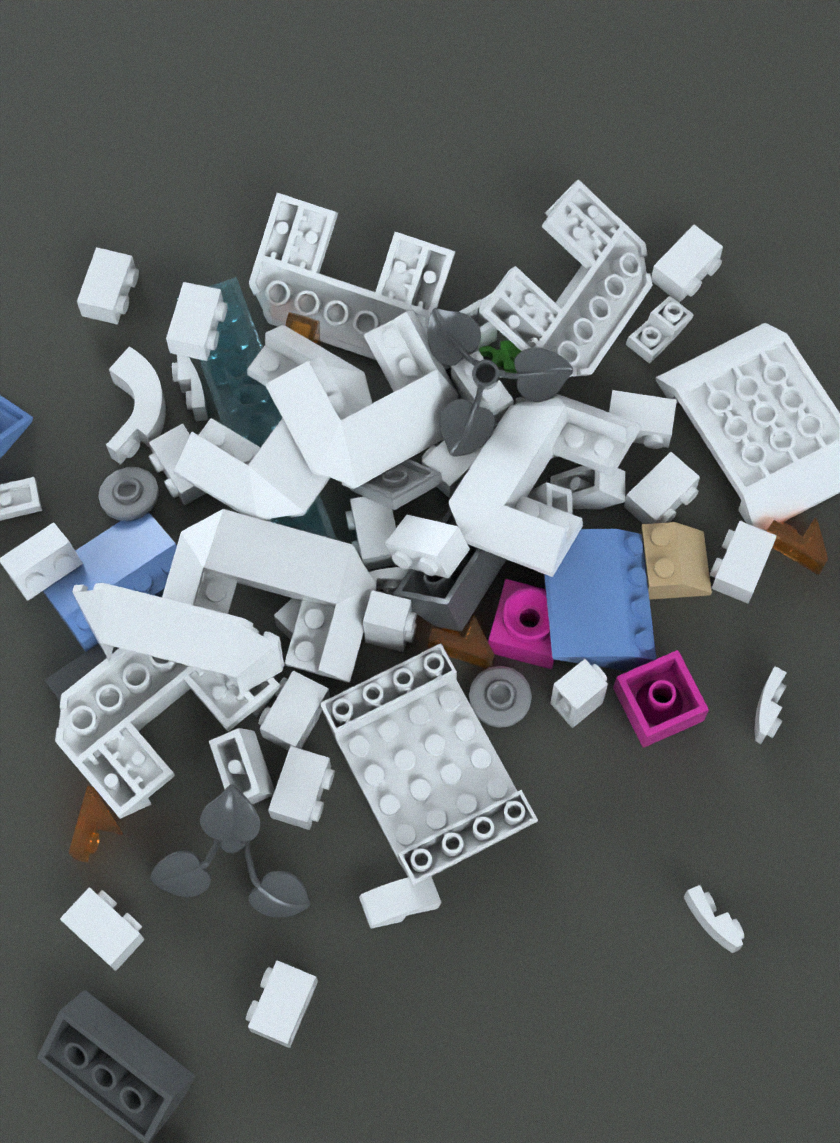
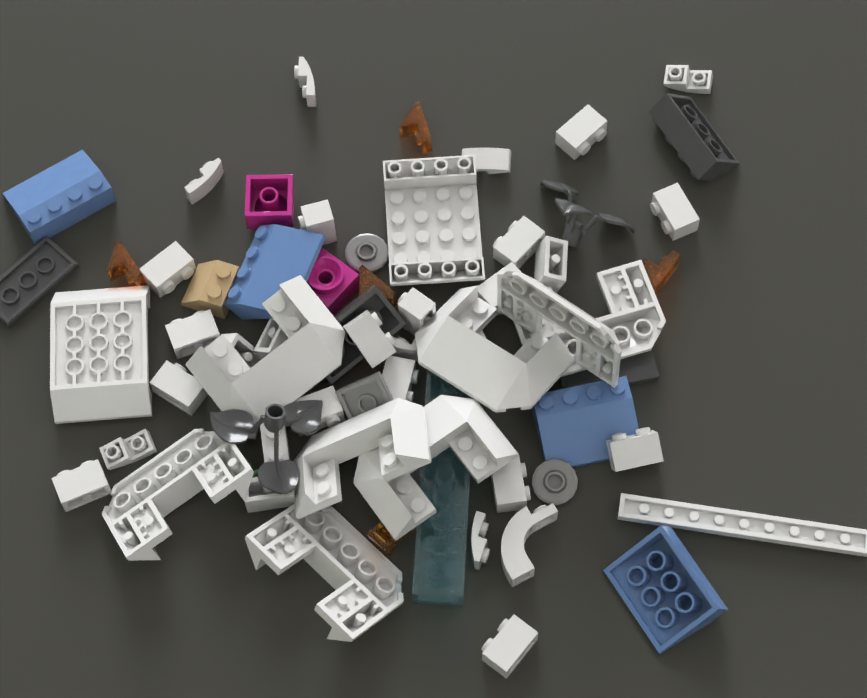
camera: 155 degrees left, 5 degrees down
(196, 321) = (457, 559): white brick -> none
(523, 918) = (416, 126): none -> clear orange slope

